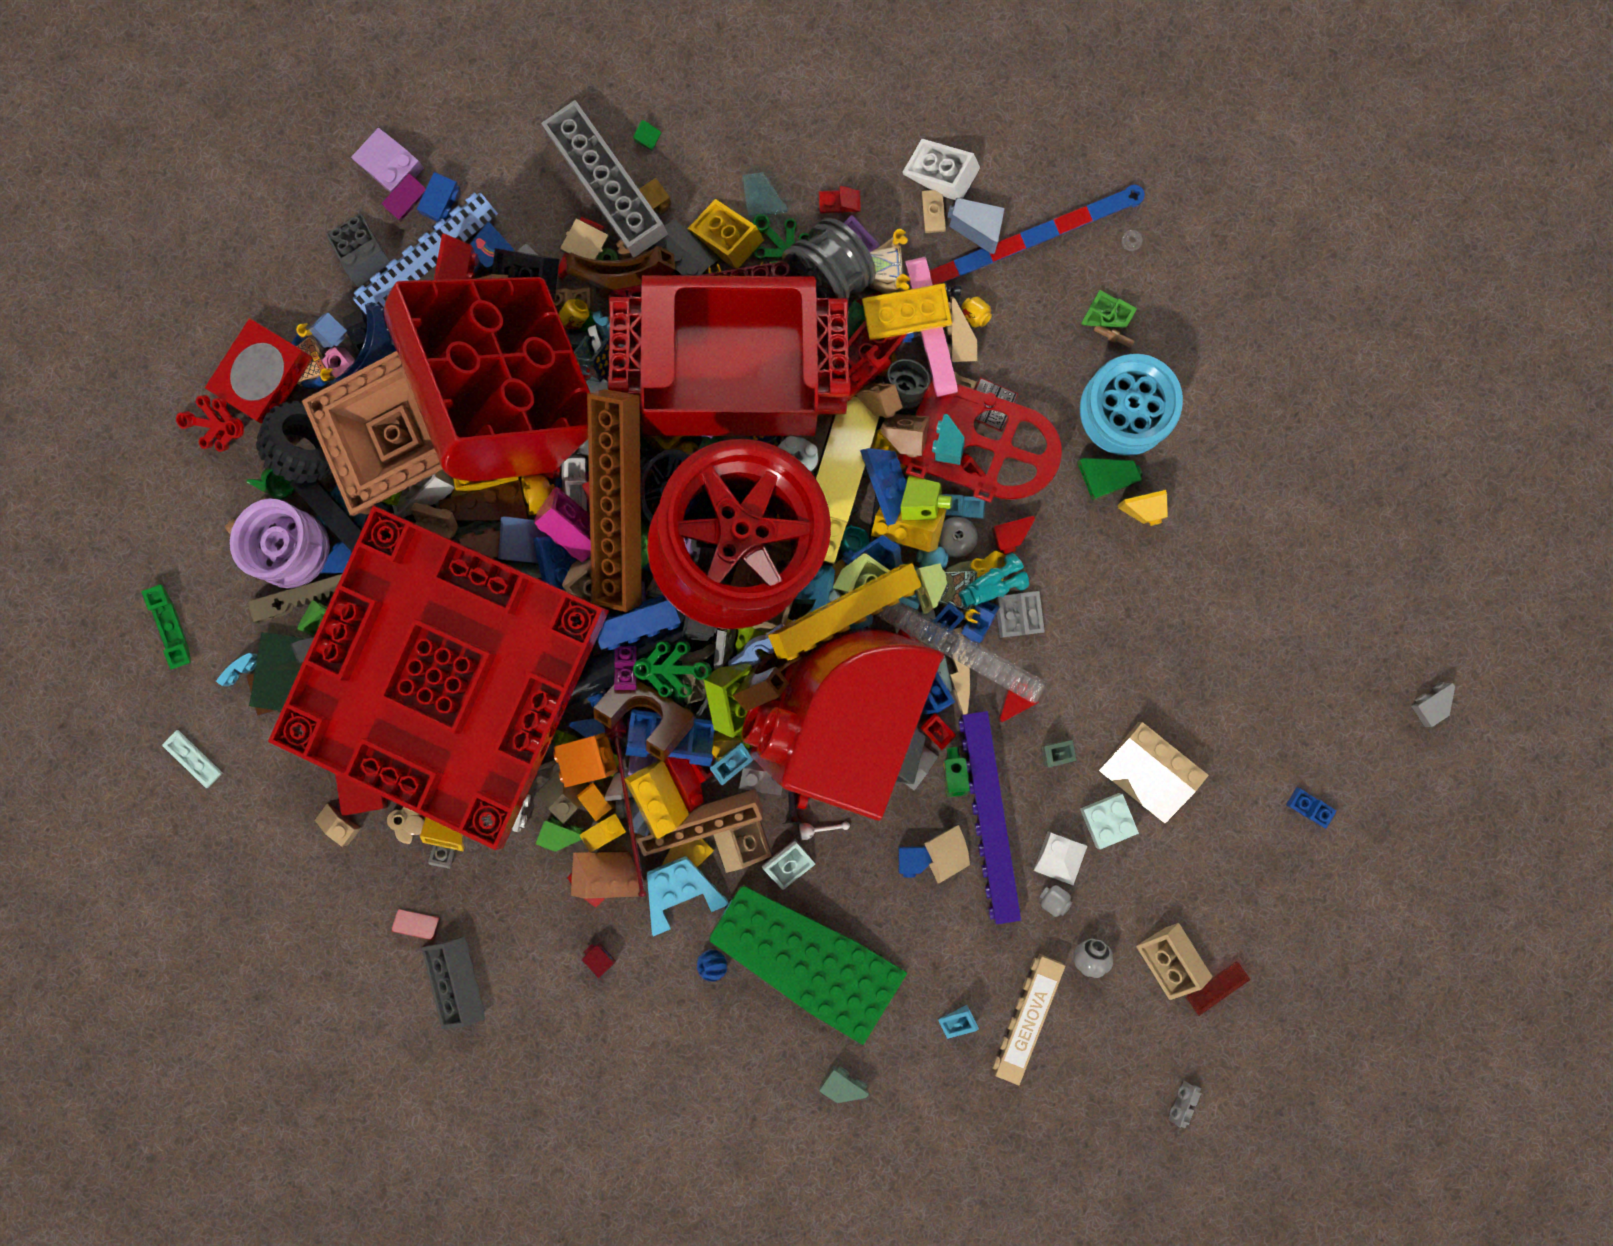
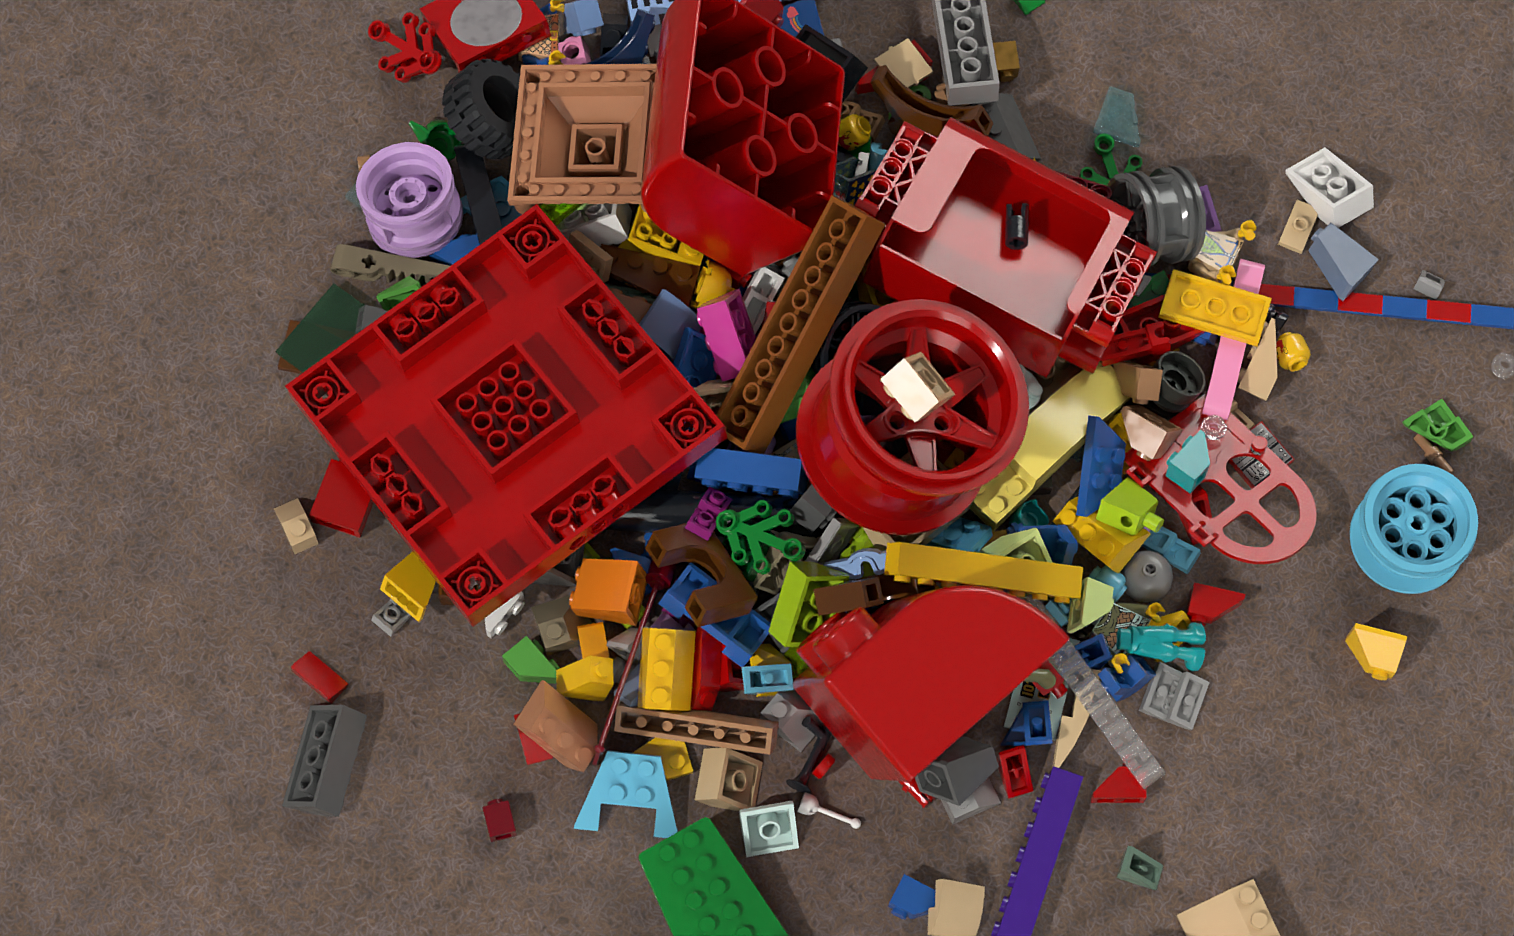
camera: 20 degrees right, 15 degrees down
(169, 626) = (237, 225): green slope -> none
(192, 759) = (180, 376): light aqua tile -> none
(243, 664) = (295, 305): medium azure slope -> none
(410, 824) = (376, 565): tan plate -> none
(712, 965) = (623, 893): blue piece -> none
(726, 233) = (1061, 135): yellow slope -> none
(733, 527) = (916, 387): none -> slope
(735, 334) = (1017, 227): none -> black hinge
(839, 201) = (1204, 166): red slope -> none
(950, 398) = (1216, 422): none -> clear plate
(955, 783) = (1010, 829): green torso -> none
(1049, 206) = (1429, 284): none -> light grey slope
(1108, 476) = (1351, 598): green slope -> none

